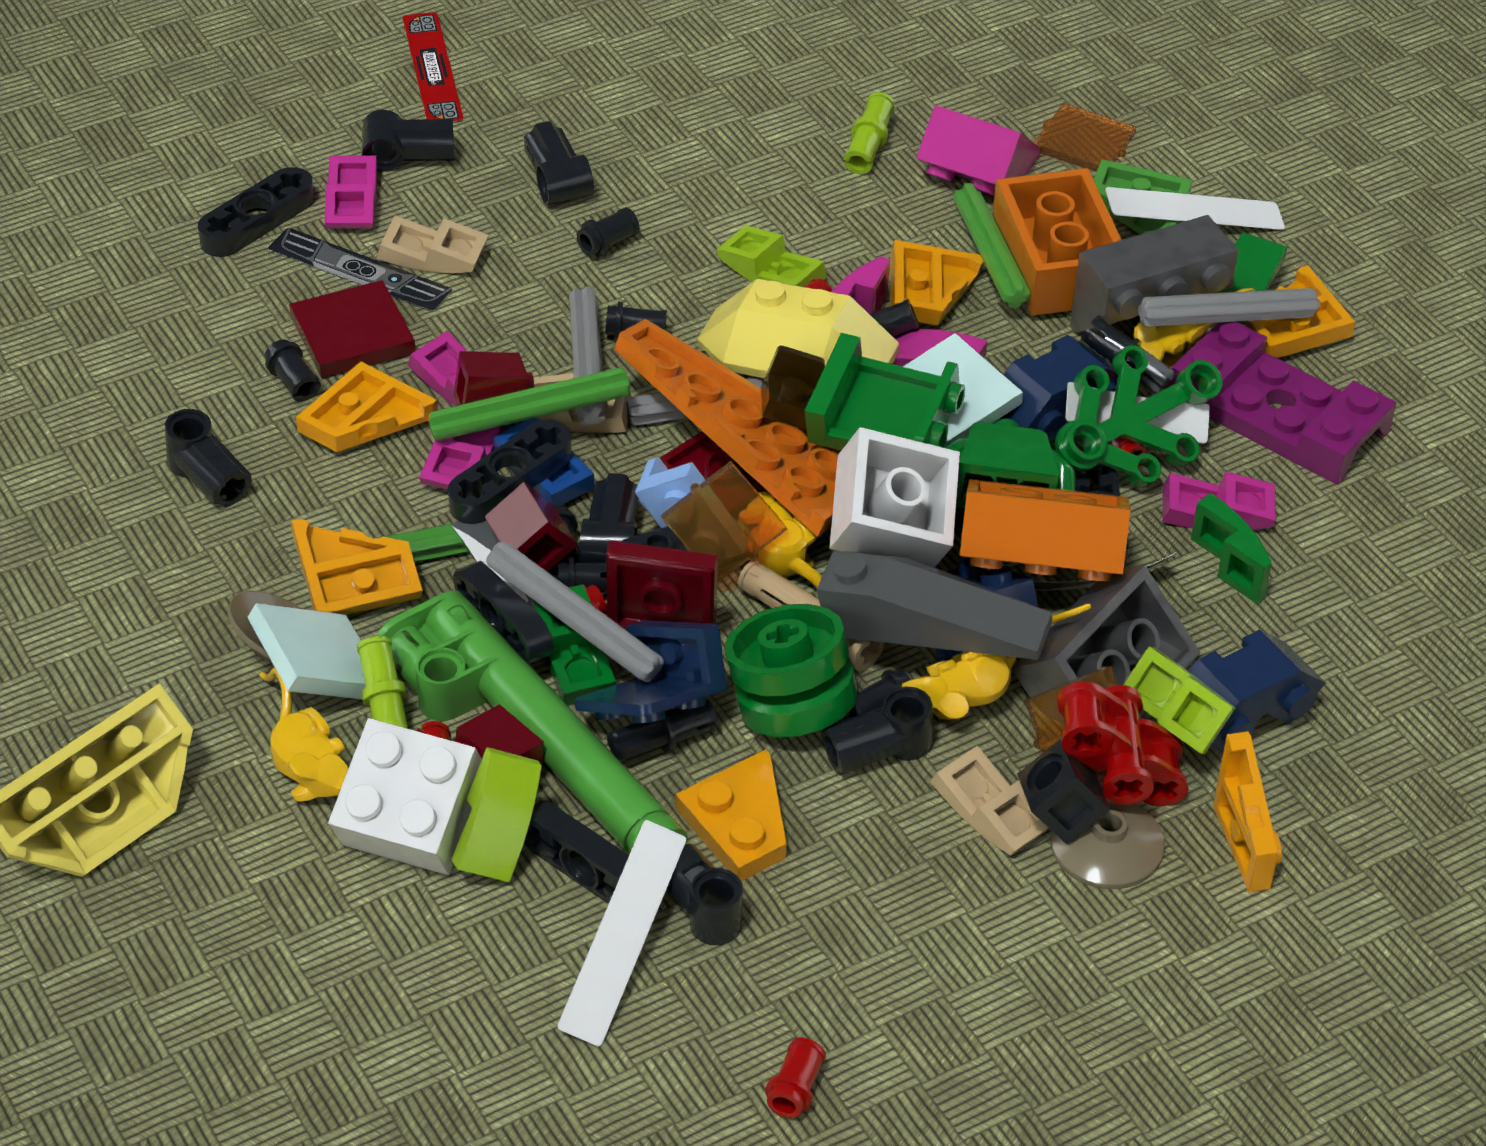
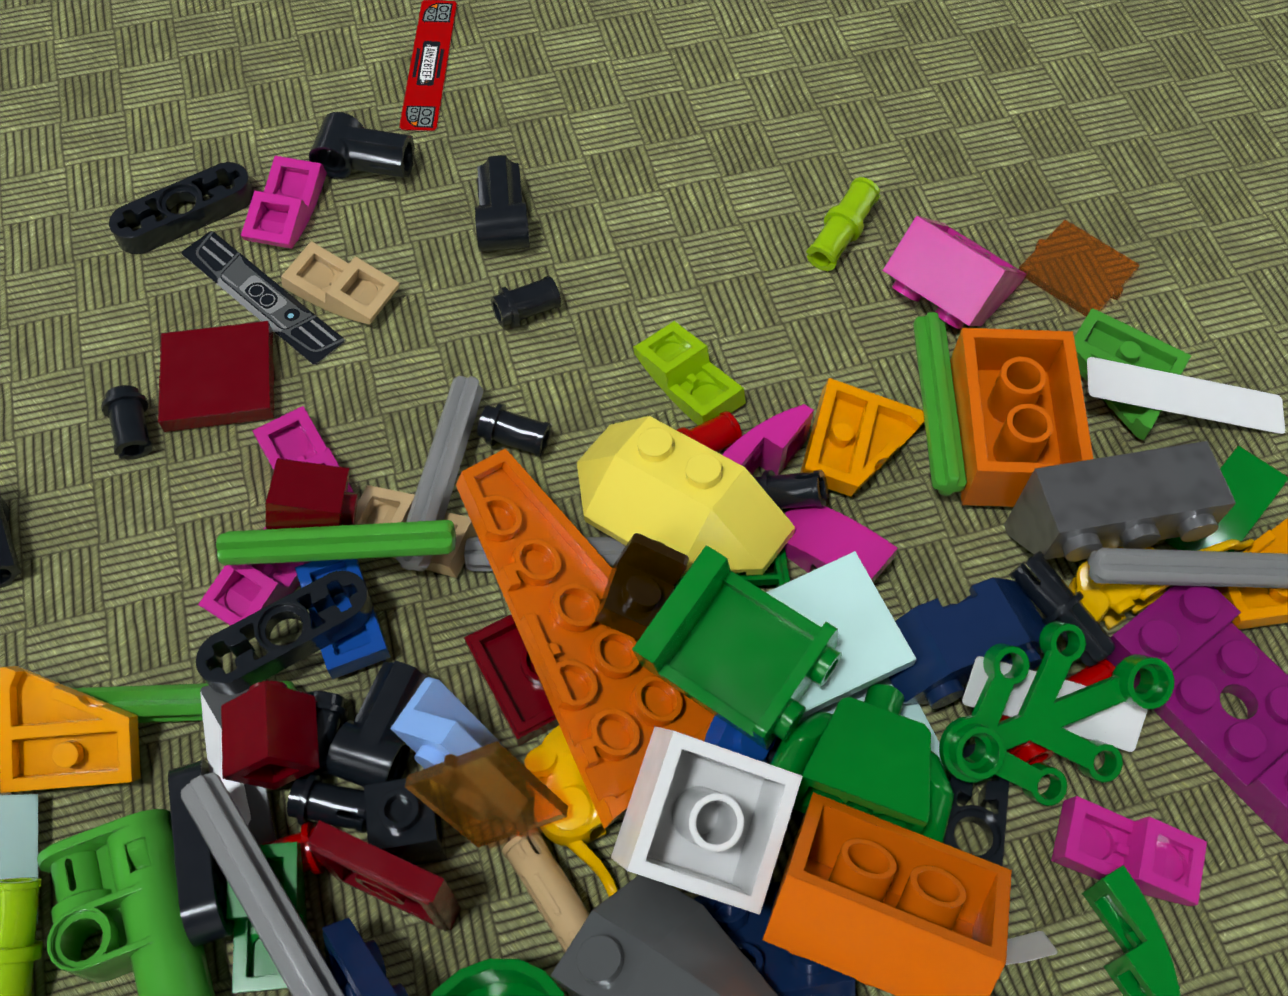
camera: 15 degrees right, 15 degrees up
(363, 408) = (177, 493): light orange wing -> none

